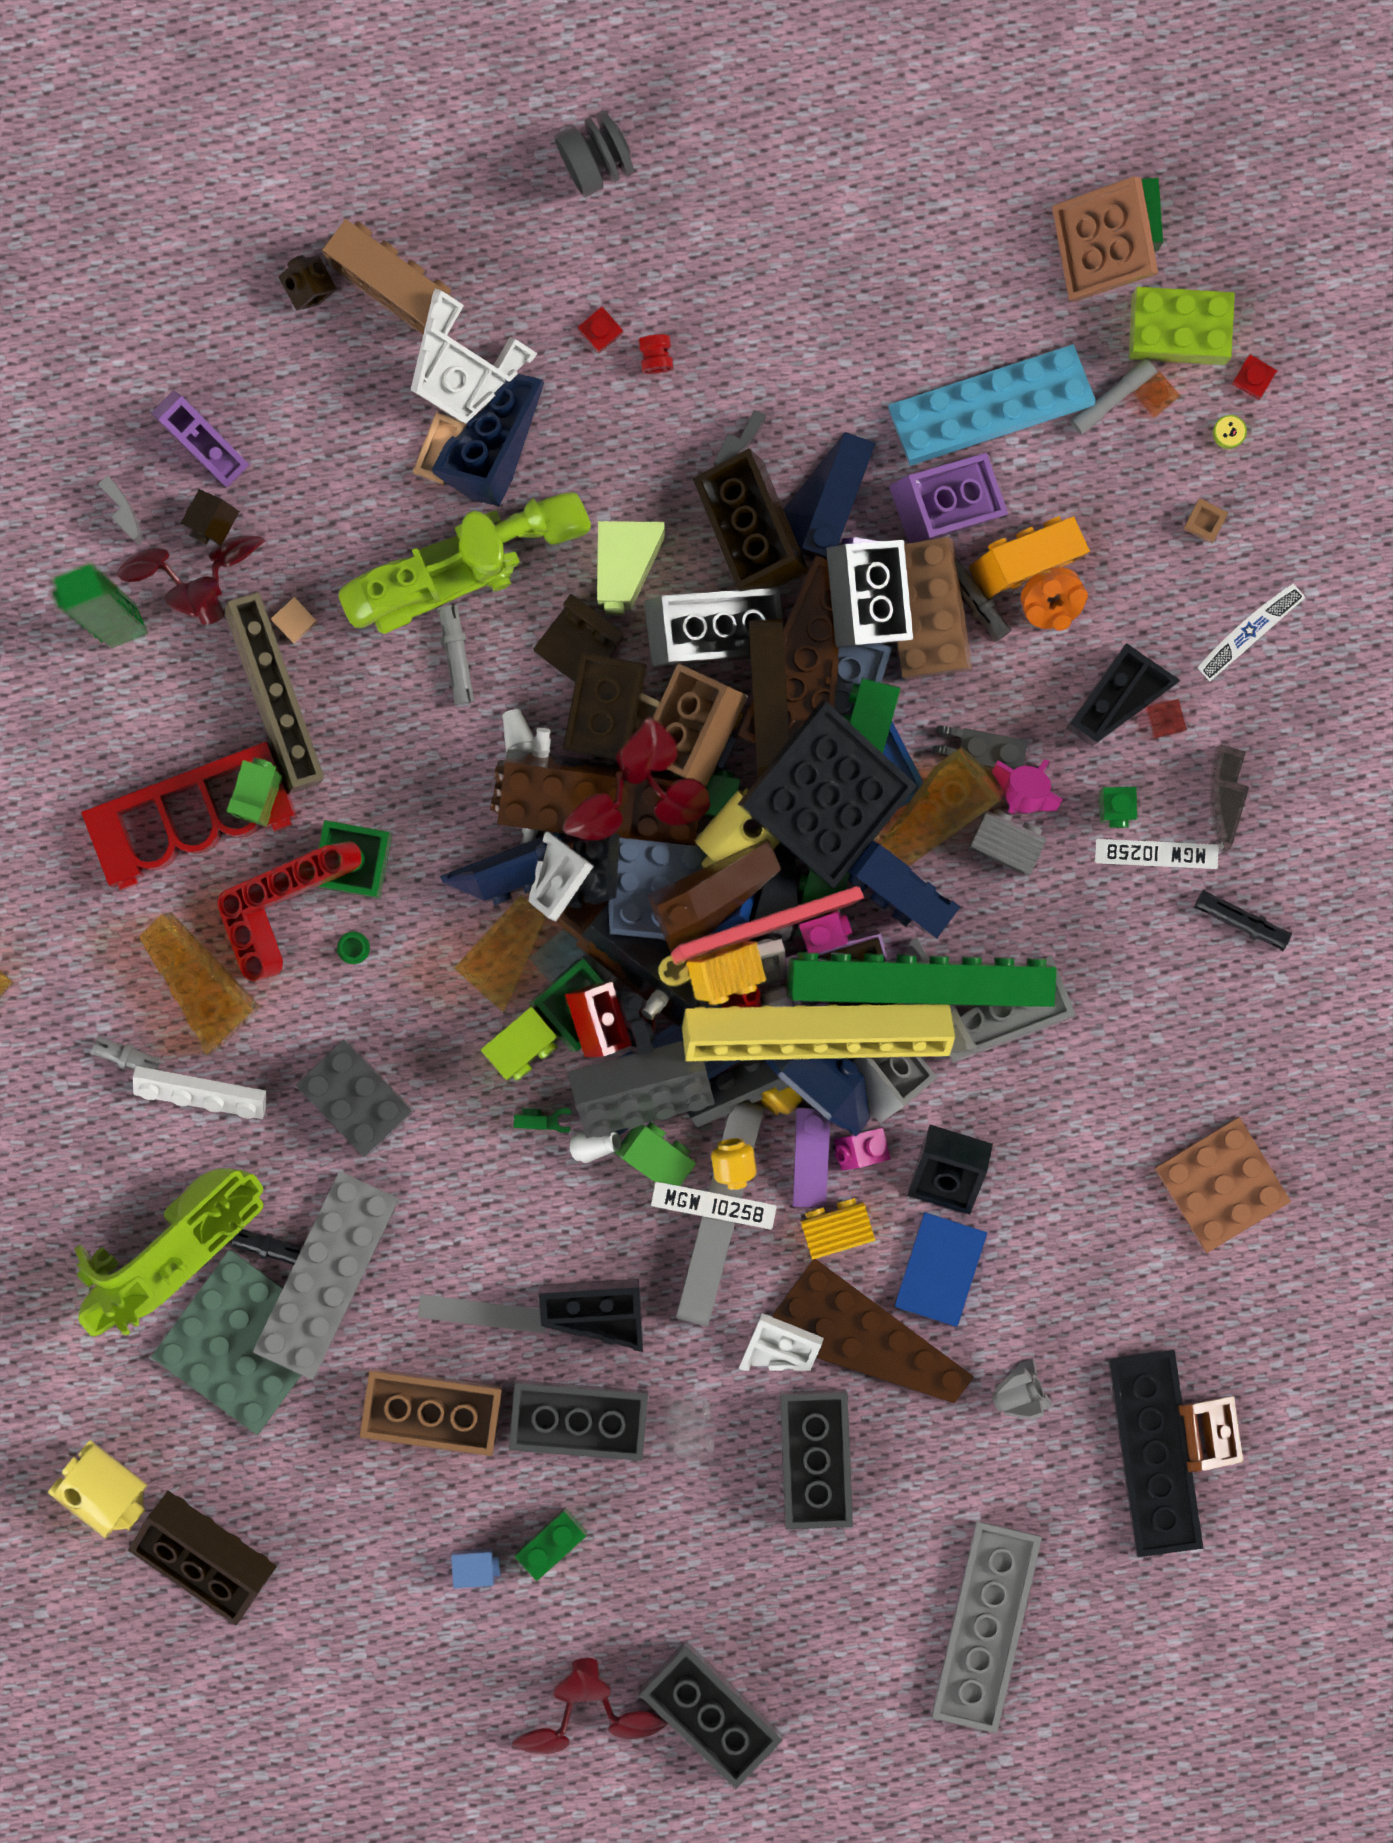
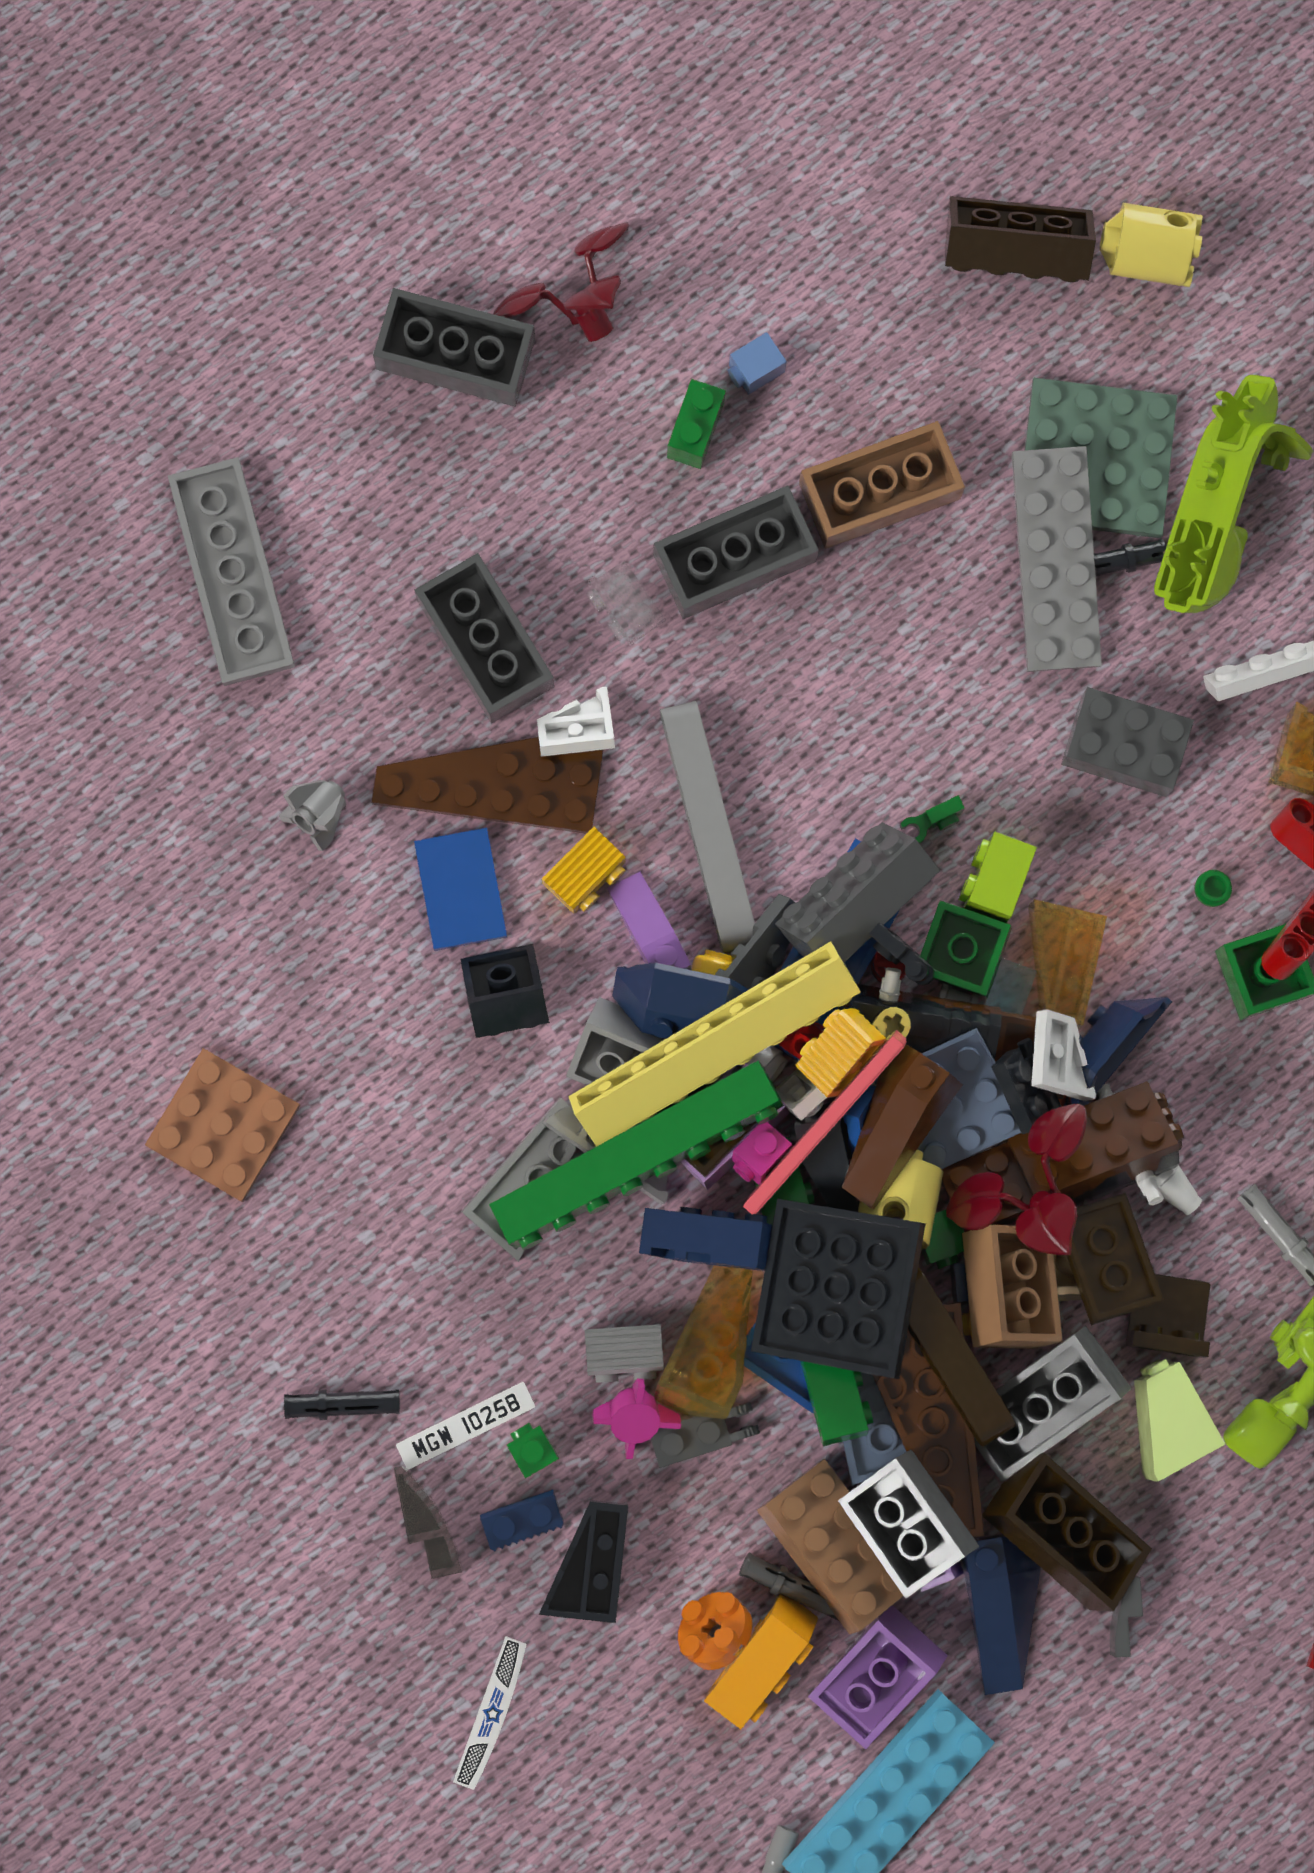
camera: 150 degrees right, 5 degrees down
(480, 1313) = (883, 607): light grey sticker -> none
(594, 1147) = (868, 817): white cone -> none
(595, 1310) = (779, 664): black wedge -> none
(598, 1020) = (938, 938): red brick -> none
(654, 1156) = (802, 843): bright green brick -> none
(655, 354) = (1262, 1660): red wheel -> none
(713, 1205) = (719, 825): white sticker -> none
(733, 1163) = (724, 875): yellow head -> none
(861, 1150) = (600, 962): dark pink bracket -> none
(1153, 758) = (522, 1520): none -> dark blue brick
(1155, 1453) = (152, 824): black plate -> none
(1166, 719) = (530, 1570): clear red tile -> none
(1205, 520) = (600, 1804): medium nougat plate -> none
(1220, 1433) = (98, 878): plate -> none

